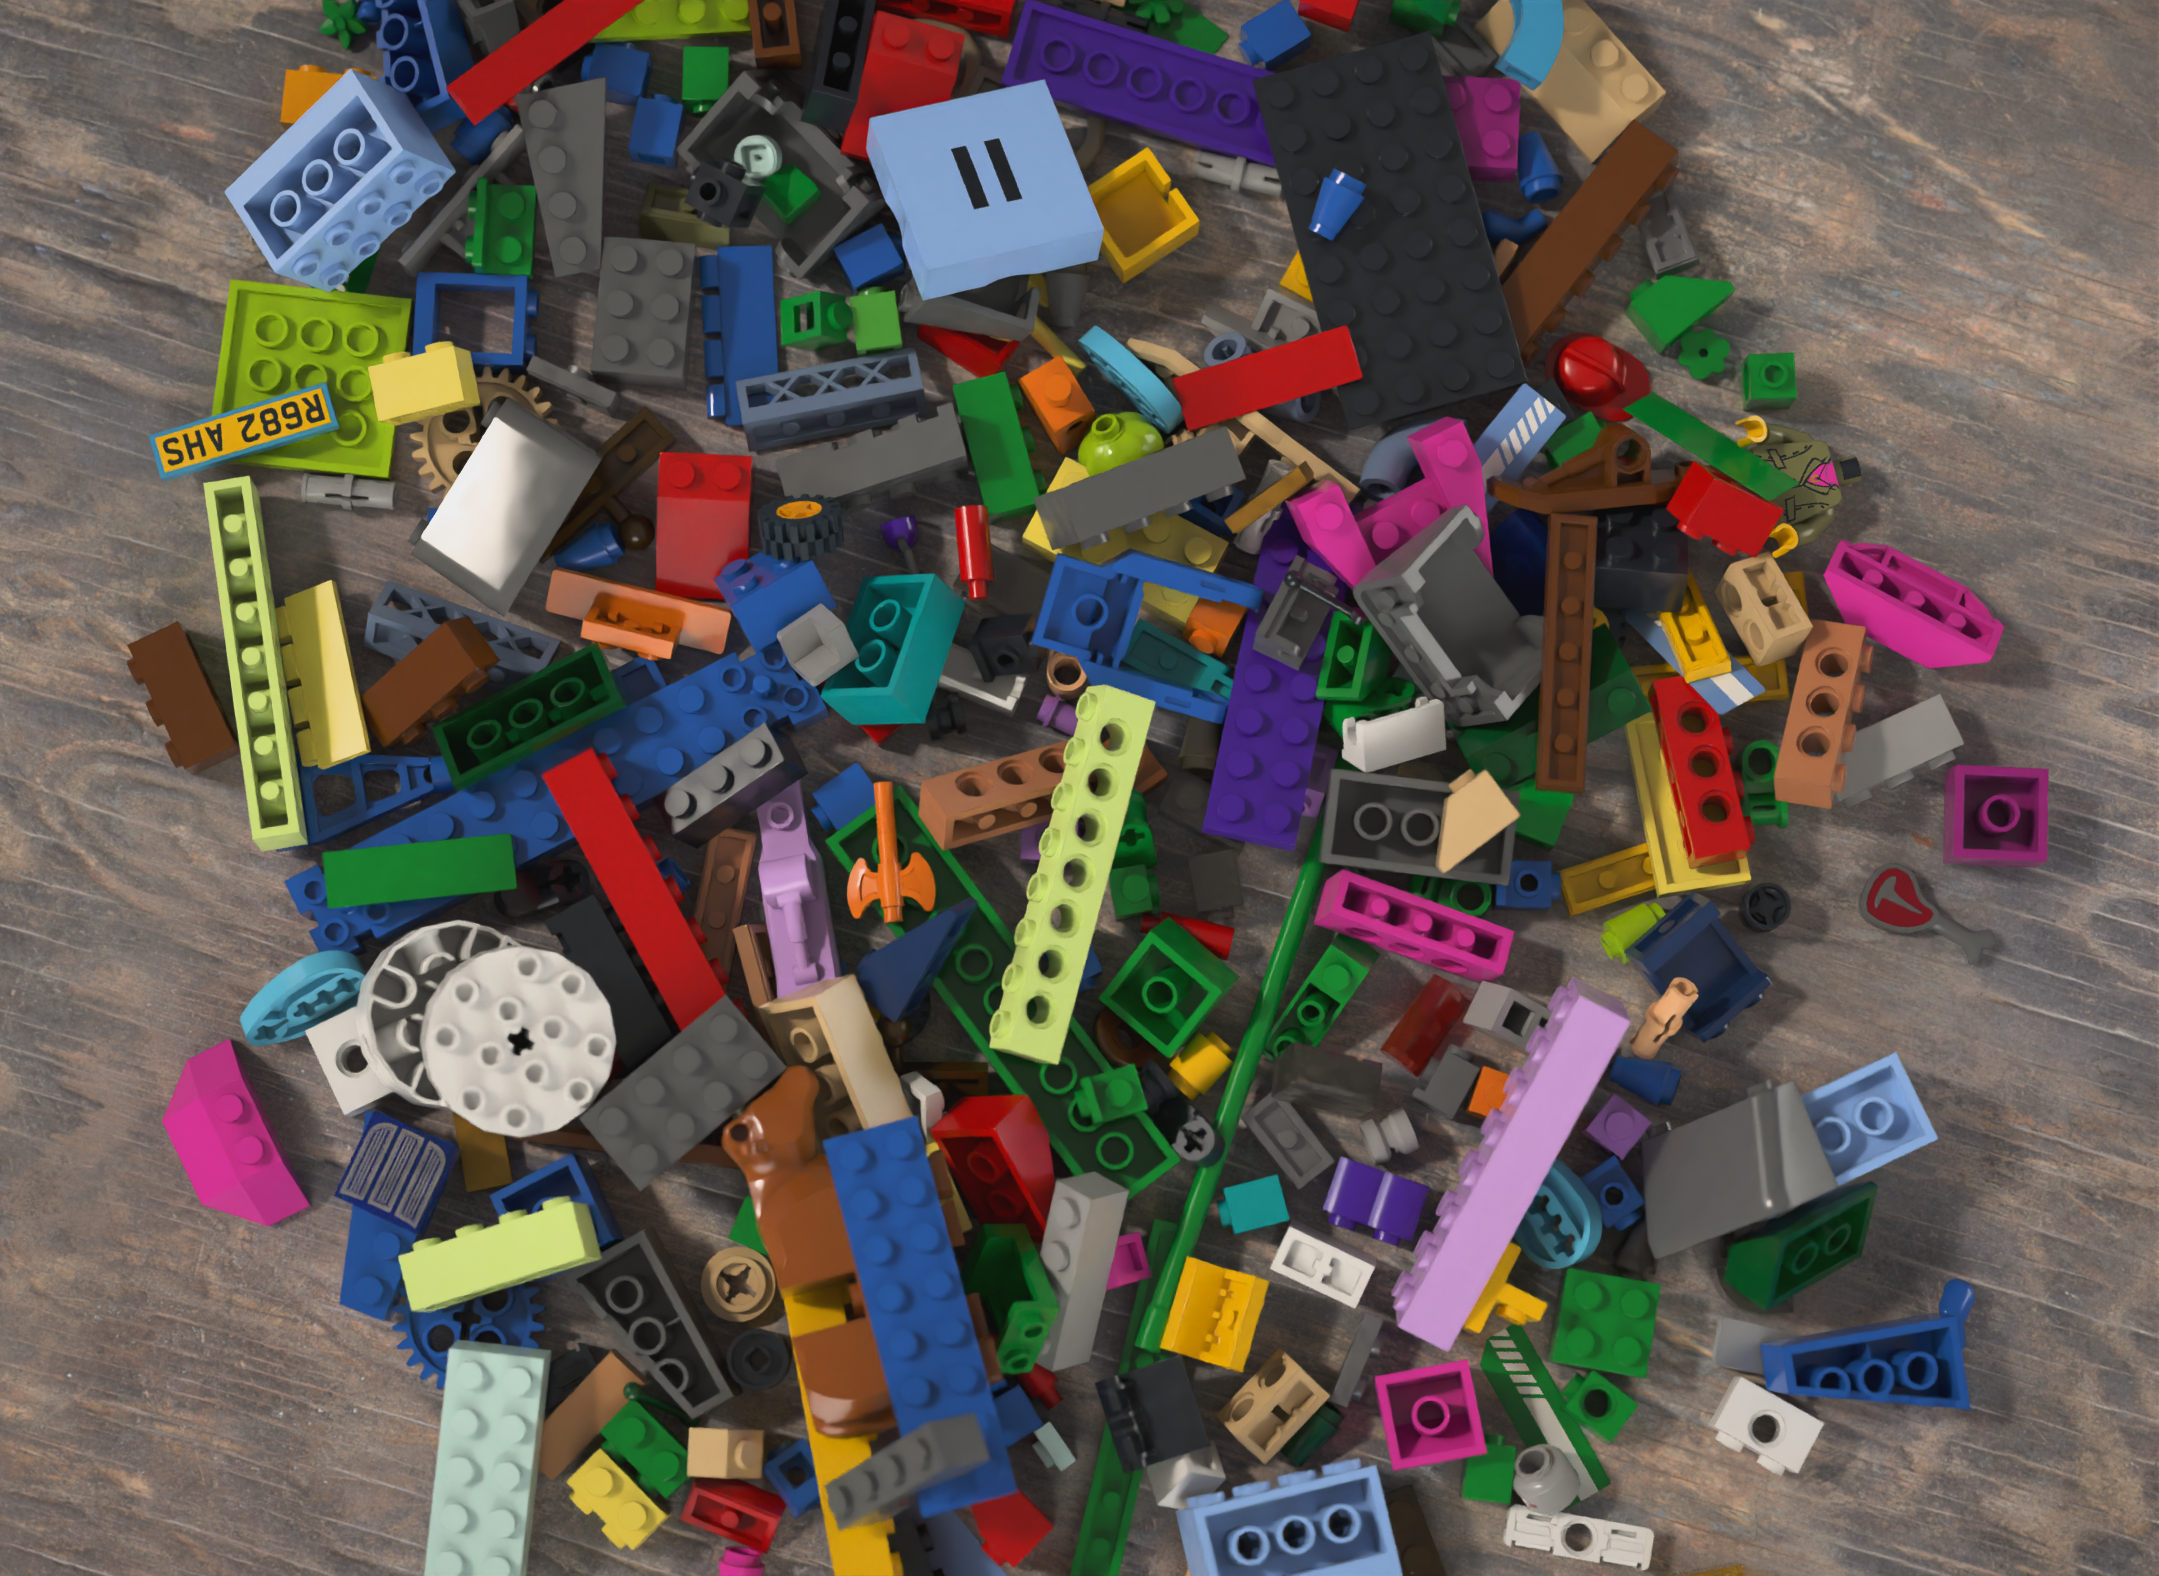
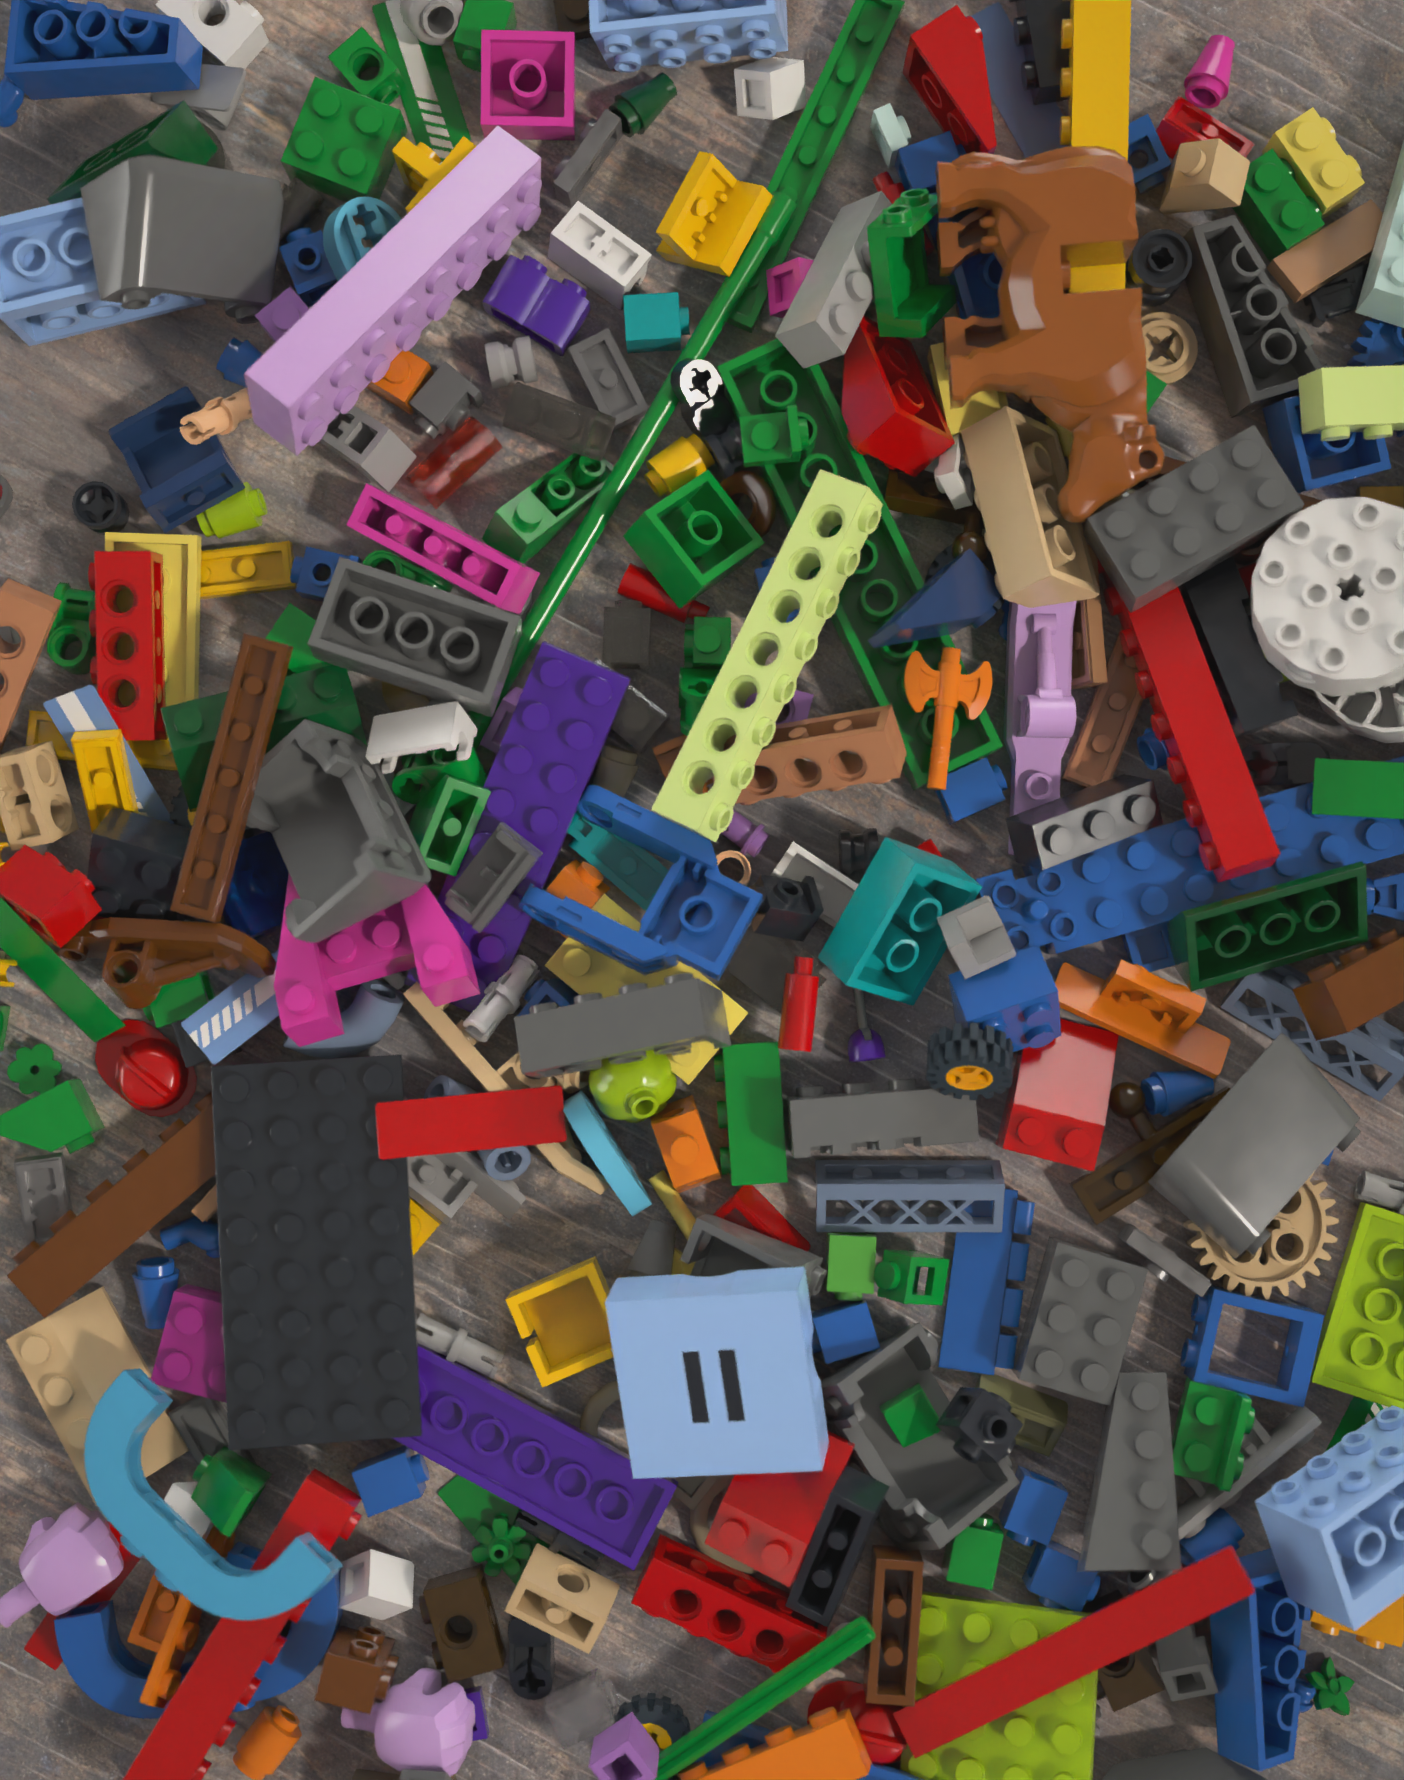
camera: 165 degrees left, 5 degrees up
(423, 384) = (1320, 1286): light yellow brick -> none
(633, 1391) = (1286, 252): dark green hinge -> none
(759, 155) = (936, 1459): light aqua tile -> none
(916, 1299) = (1009, 232): blue plate -> none
(919, 1460) = (1043, 73): dark grey arch -> none
(1153, 1414) = (792, 135): black hinge -> none
(1270, 498) = (494, 997): pearl gold tile -> none
(1272, 1406) = (675, 126): tan brick -> none
(1294, 579) = (486, 904): black hinge -> none
(1336, 203) = (362, 1285): blue cone -> none
(1471, 817) = (361, 620): tan slope -> none

